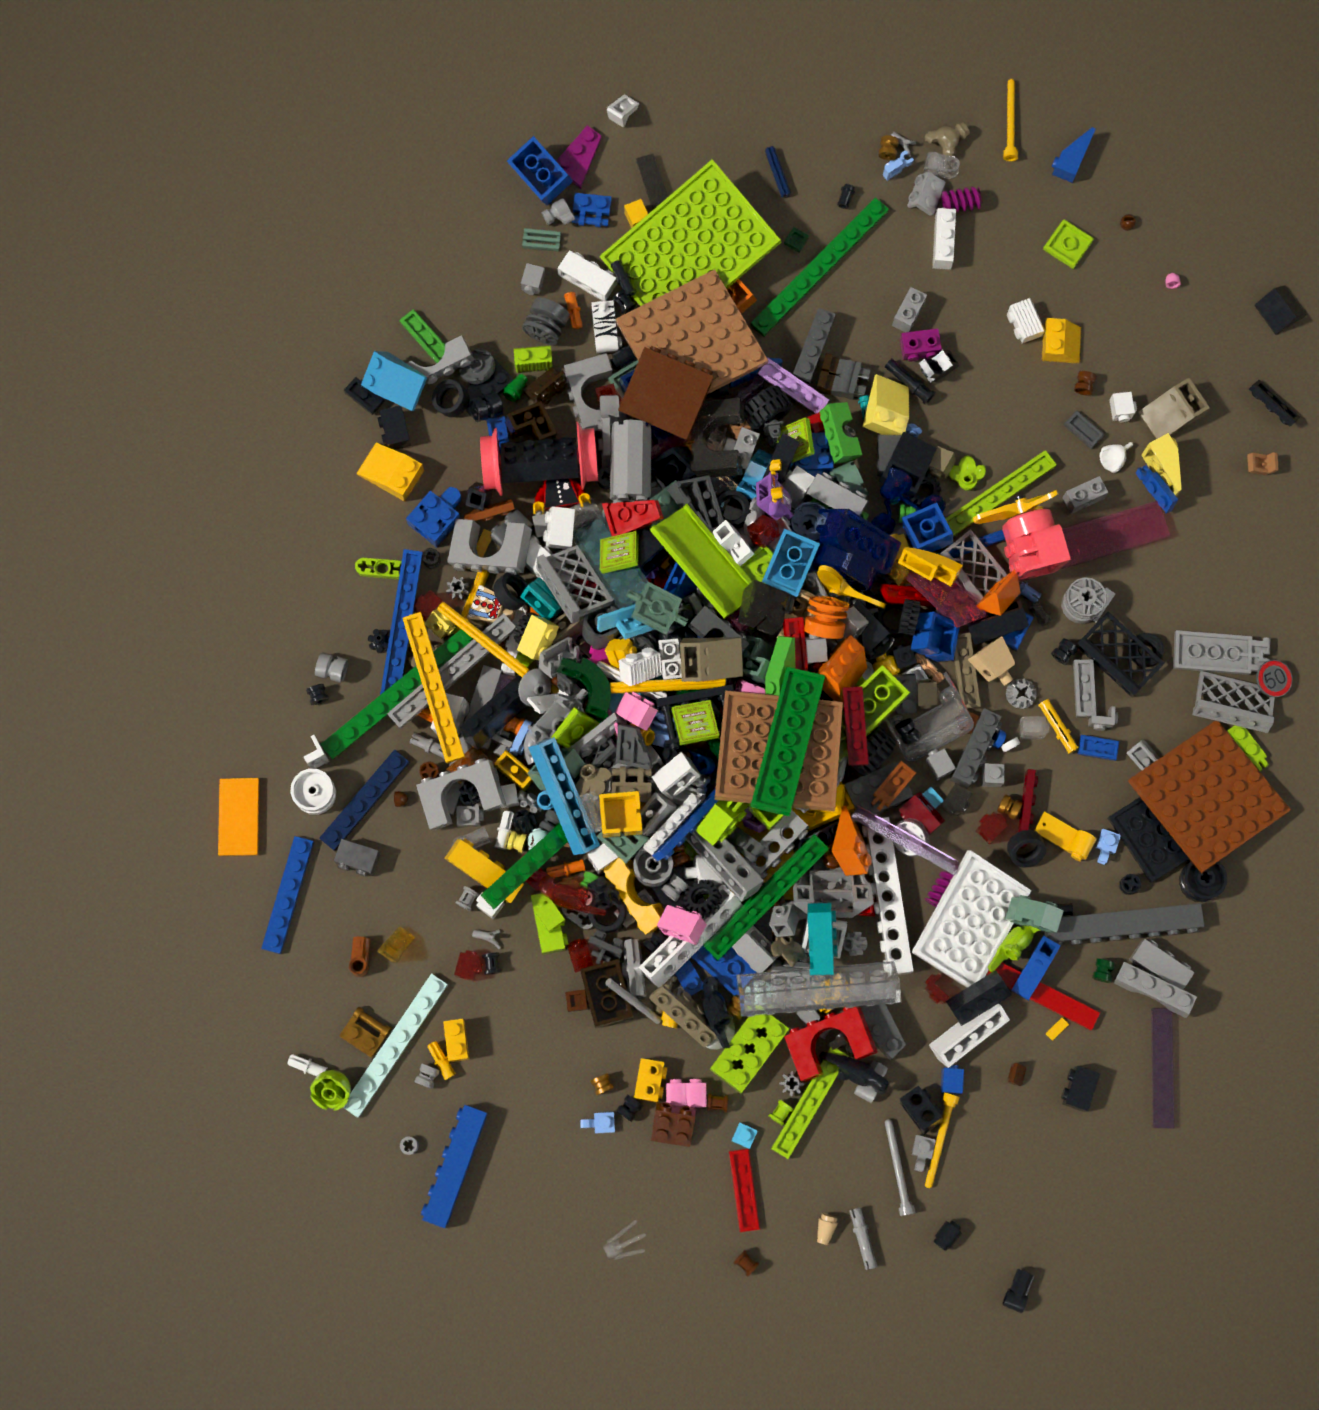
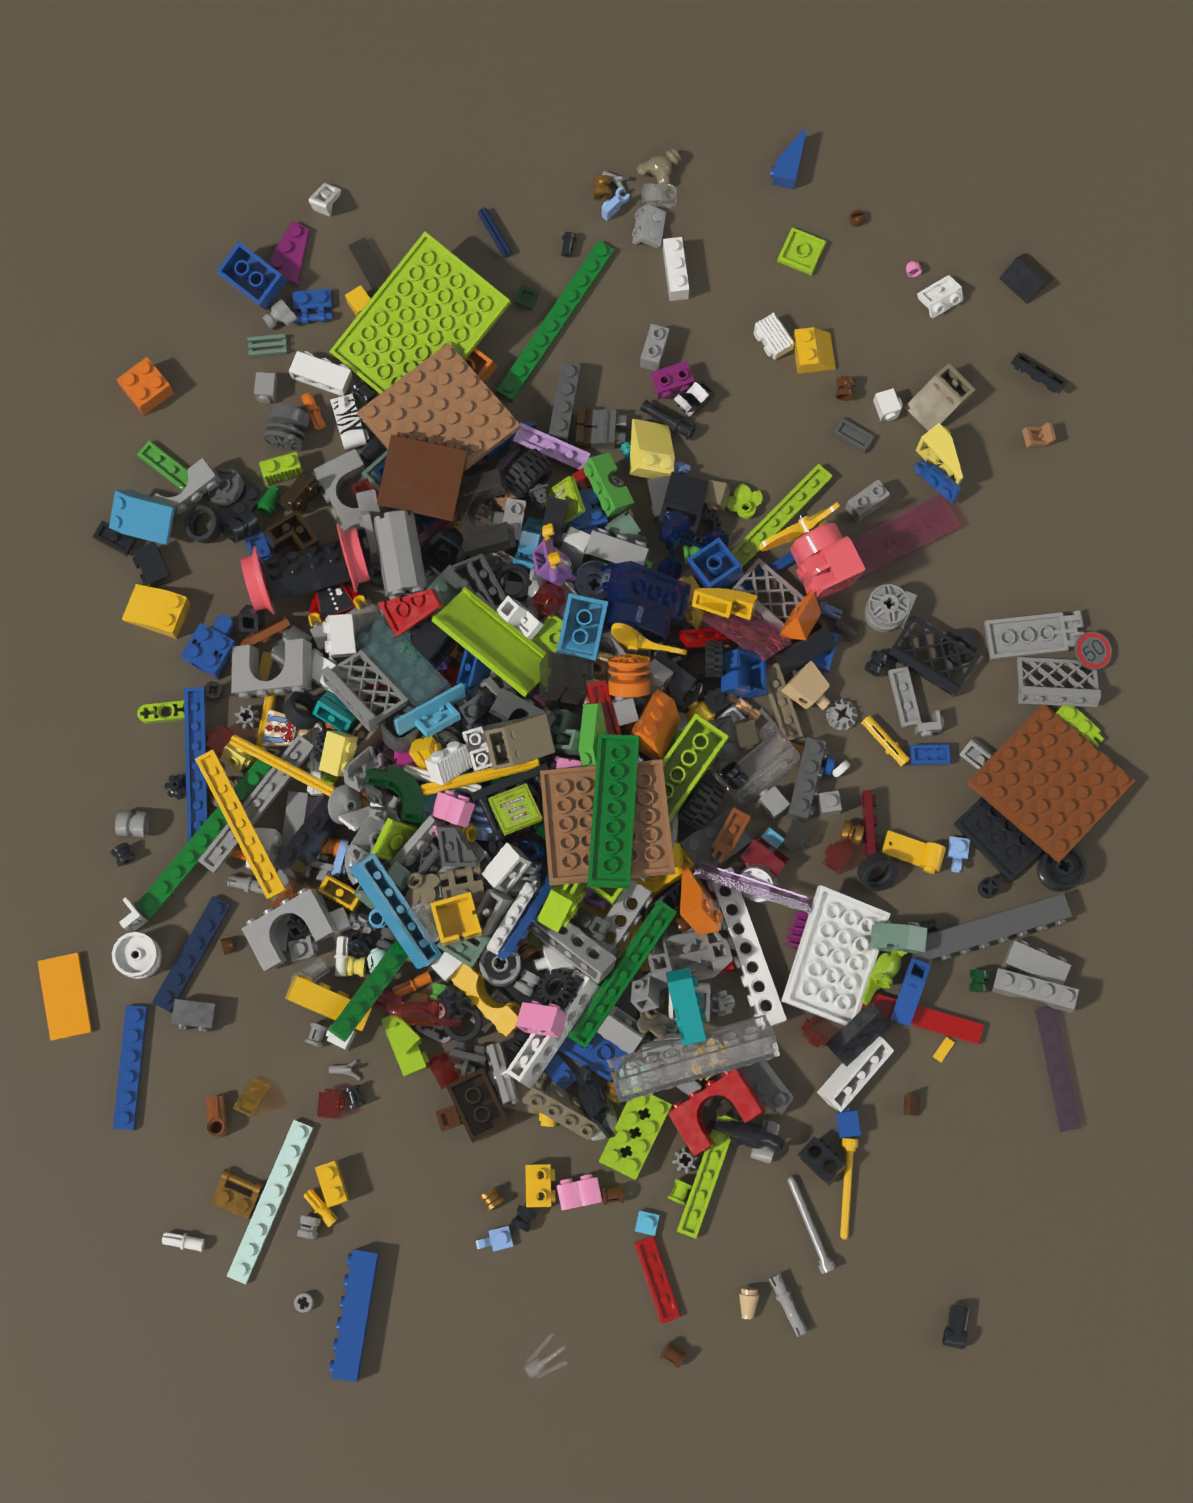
camera: 10 degrees left, 0 degrees up
(330, 1090) = (211, 1261): lime cylinder -> none
(419, 257) = (145, 386): none -> orange brick
(427, 769) = (251, 908): reddish brown wheel -> none
(619, 552) = (404, 649): lime tile -> none
(623, 278) = (358, 369): black pin -> none
(633, 1001) = (506, 1107): light grey bar -> none
(656, 608) = (453, 699): sand green plate -> none
(673, 1124) = (571, 1226): reddish brown plate -> none
(855, 726) = (679, 781): dark red plate -> none
(923, 1149) = (831, 1200): light grey plate -> none
(947, 1235) = (873, 1284): black brick -> none
(962, 199) = (686, 225): magenta piece -> none
(1010, 152) = (726, 171): yellow piece -> none
(1033, 727) = (861, 747): clear brick -> none
(1080, 1088) = (979, 1106): black brick -> none
(1114, 456) = (889, 457): white piece -> none
(1194, 312) = (941, 296): none -> white bracket

